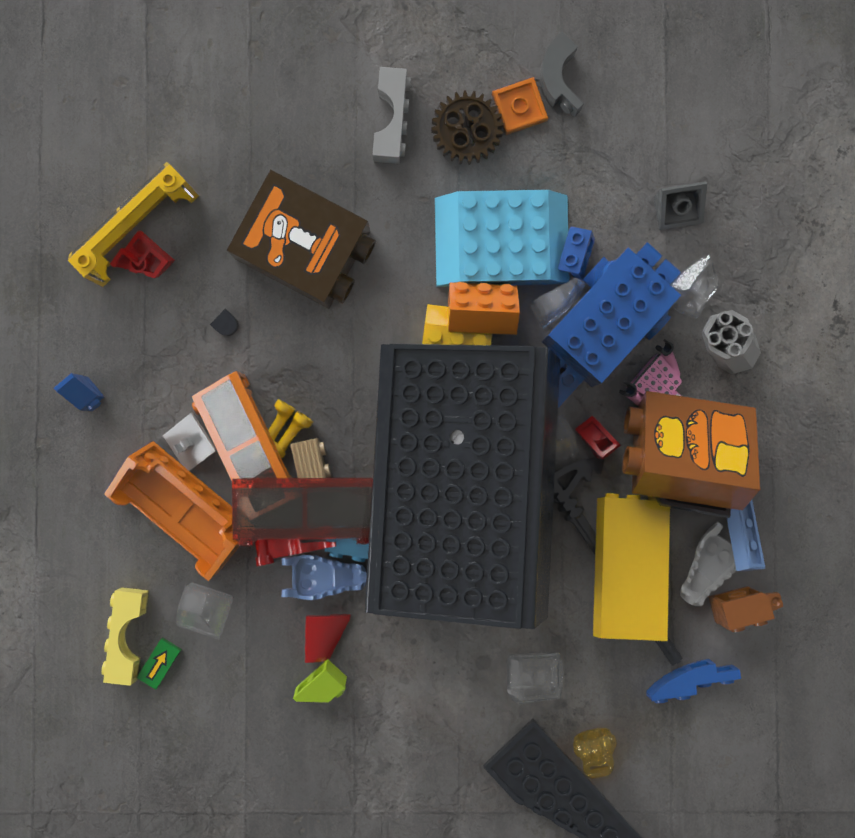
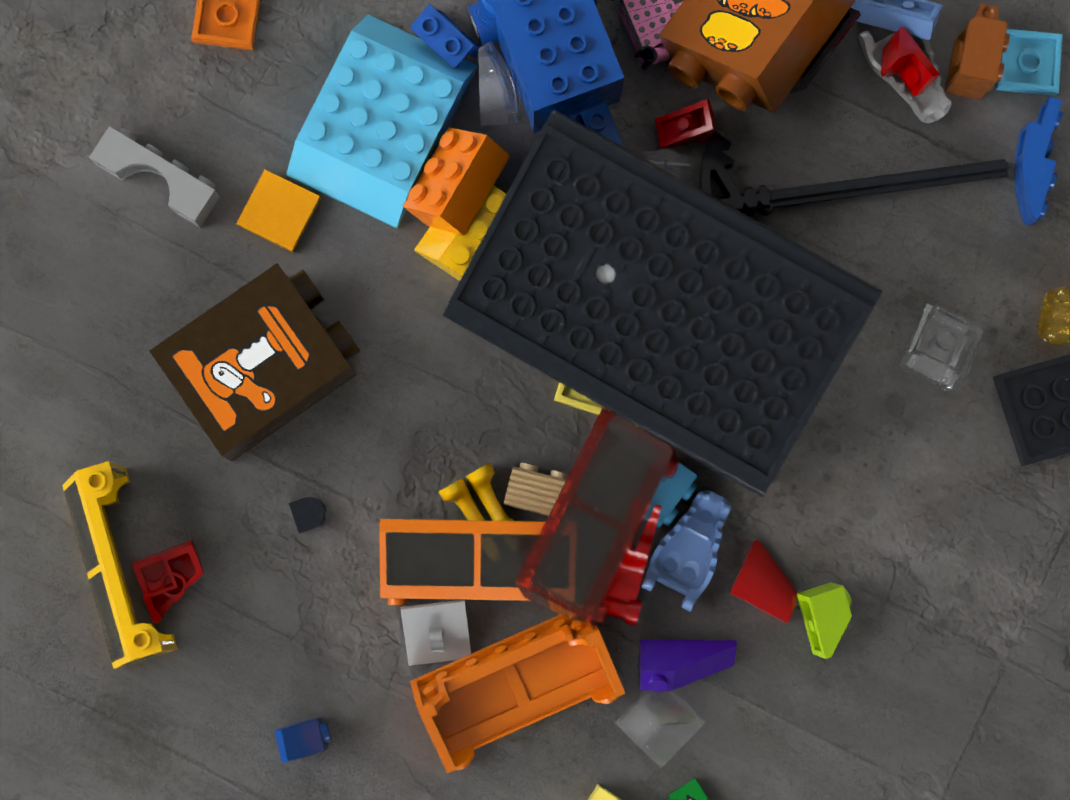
camera: 65 degrees left, 5 degrees down
(245, 605) = (675, 663): none -> dark purple slope
(409, 205) = (278, 210): none -> light orange tile
(485, 122) = (226, 65): dark brown gear -> none
(631, 568) = (865, 162): yellow brick -> none
(715, 563) = (906, 59): none -> red slope
(758, 646) = (1031, 63): none -> medium azure tile

